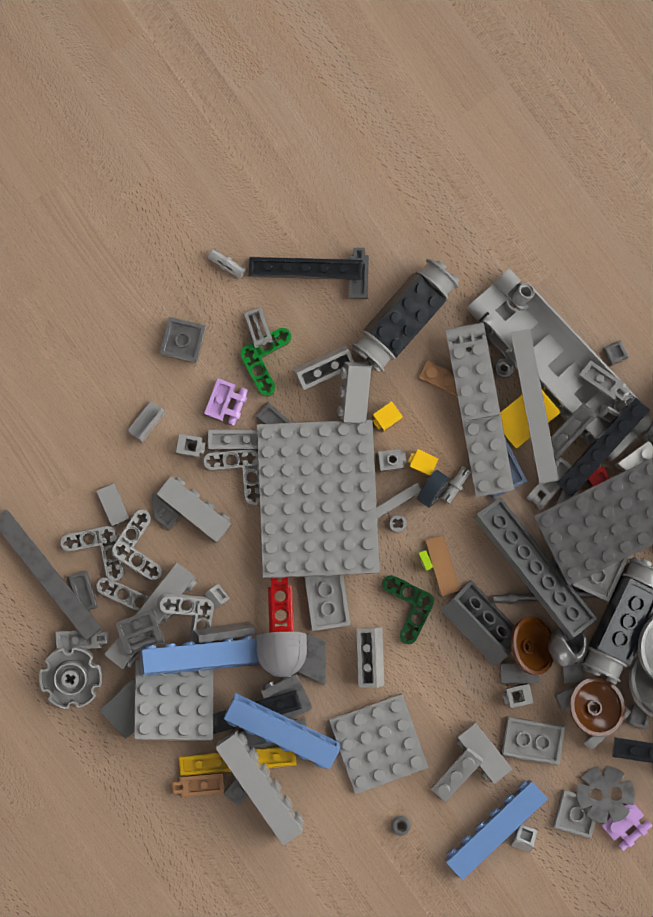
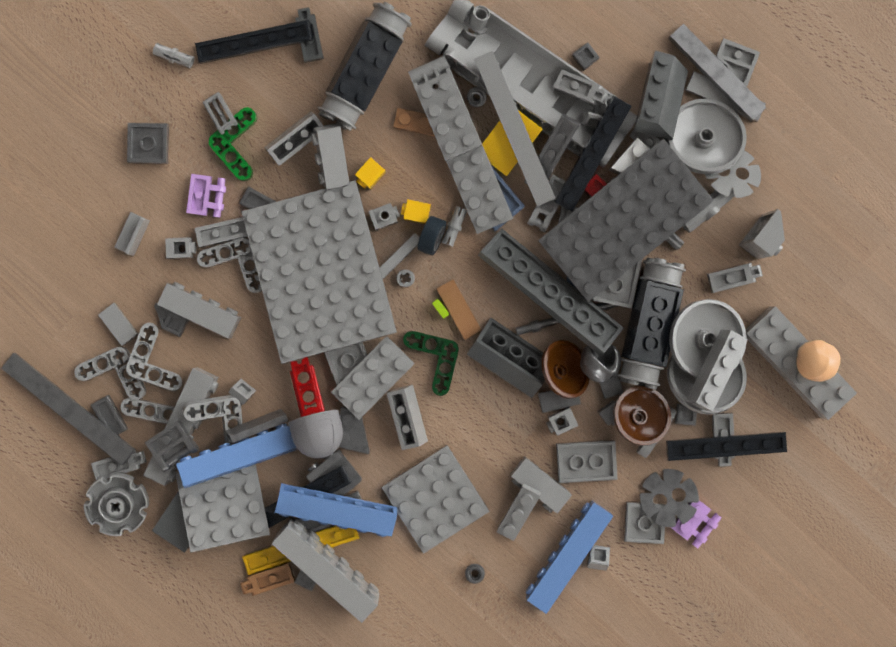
camera: 10 degrees left, 5 degrees up
(346, 611) = (372, 377): none -> light grey plate

